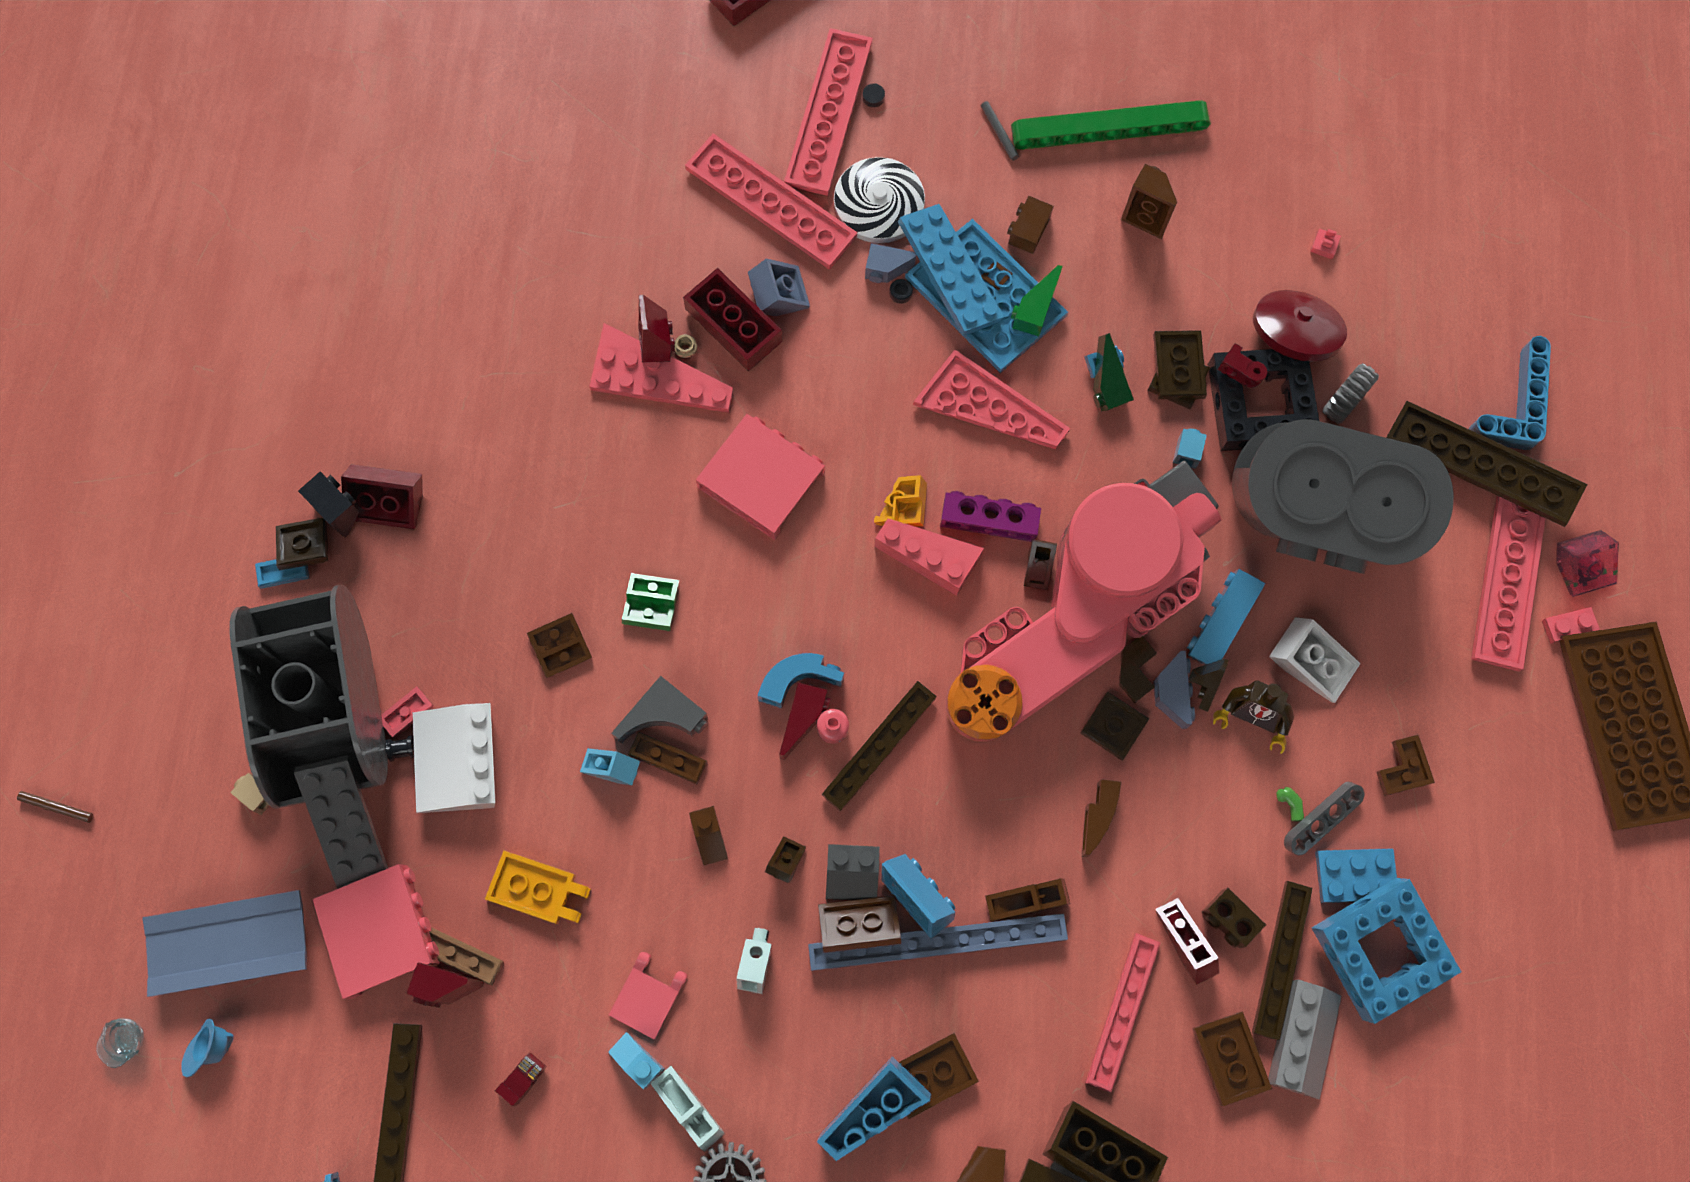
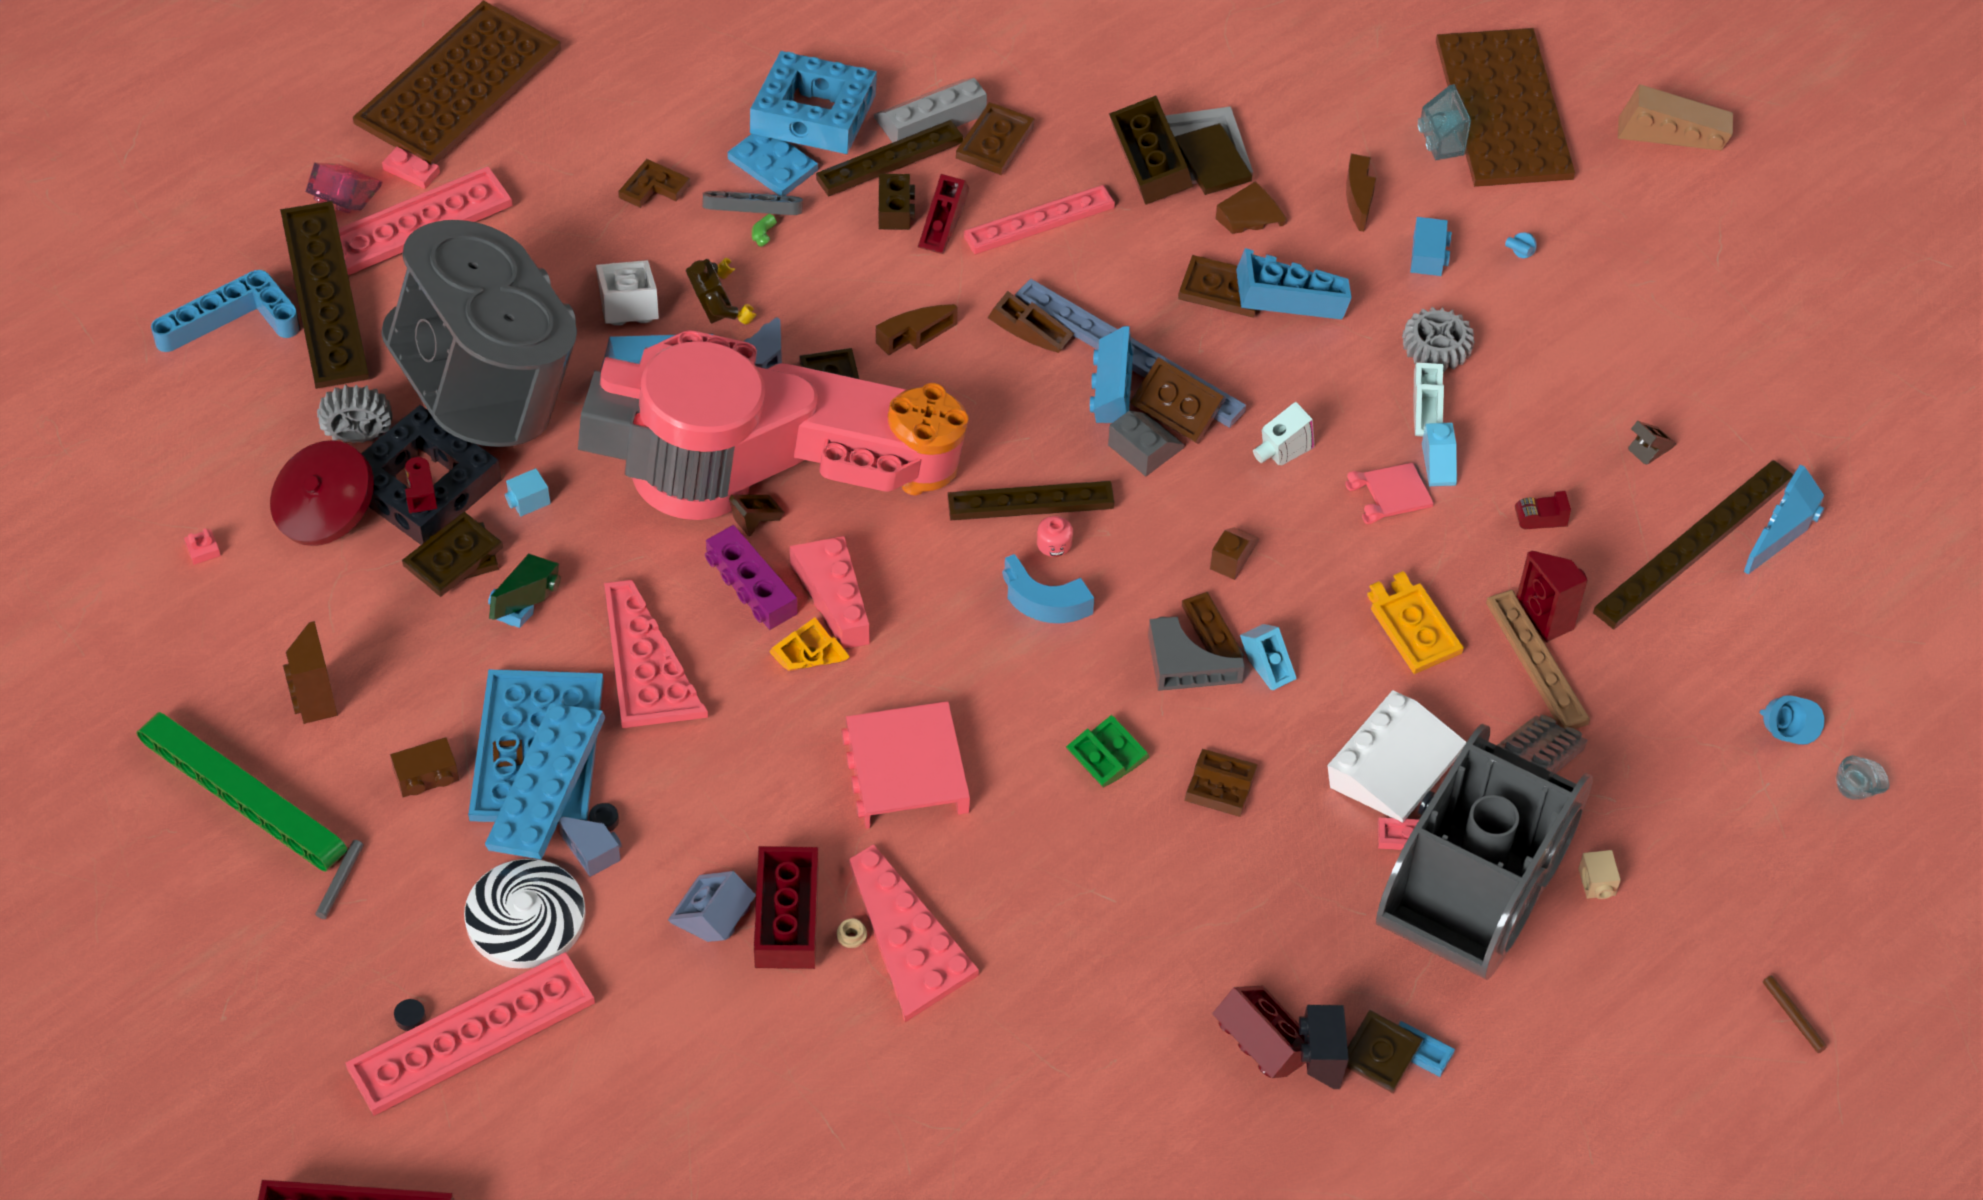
camera: 135 degrees left, 20 degrees down
(225, 943) = (1716, 771): sand blue hinge -> none
(375, 930) = (1577, 683): coral panel -> none
(654, 332) = (875, 950): dark red slope -> none
(771, 201) = (626, 997): coral plate -> none
(785, 859) = (1191, 483): dark brown slope -> none
(805, 711) = (1070, 562): dark red slope -> none
(1035, 304) = (510, 686): green slope -> none
(1209, 678) = (728, 324): dark brown slope -> none

